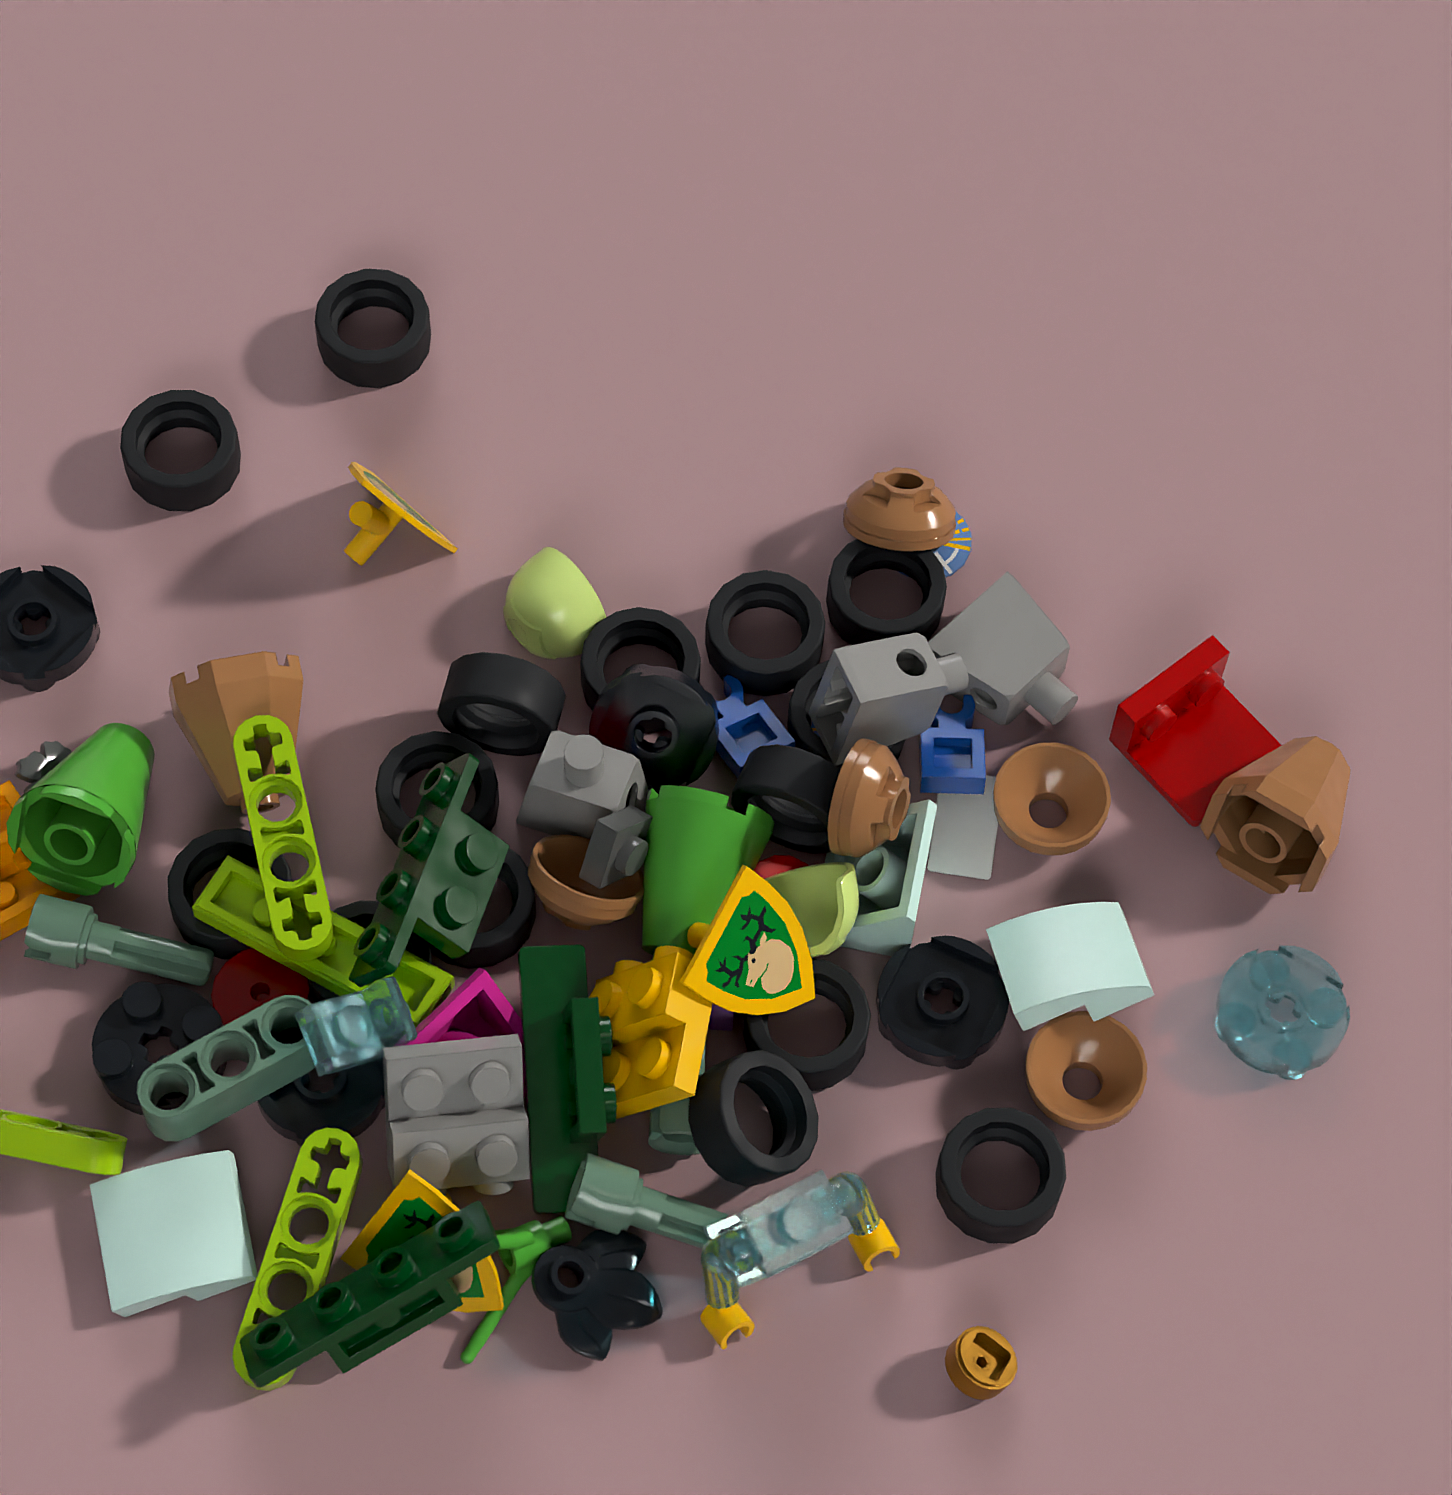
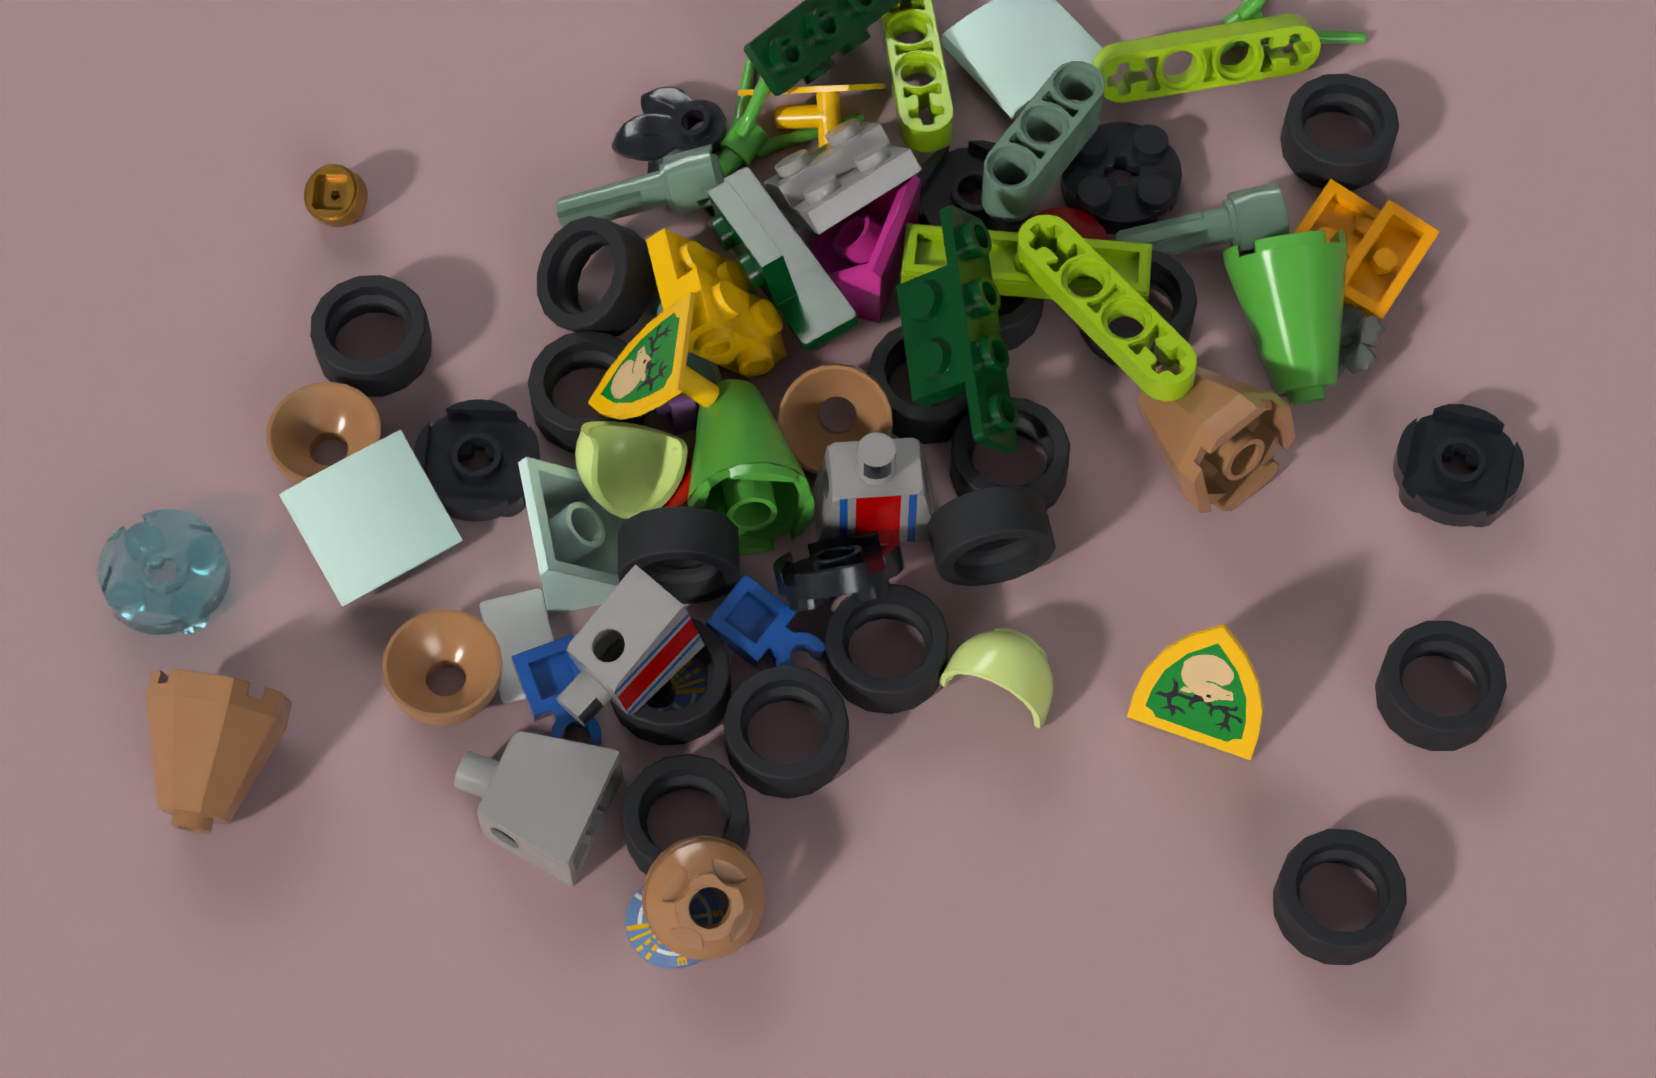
camera: 160 degrees right, 0 degrees up
(356, 1026) = (958, 177): clear light blue bracket -> none
(616, 847) = (812, 428): dark grey plate -> none
(781, 1233) = (521, 190): clear light blue torso -> none
(867, 800) = (600, 538): medium nougat piece -> none
(1189, 731) = (323, 796): red bracket -> none

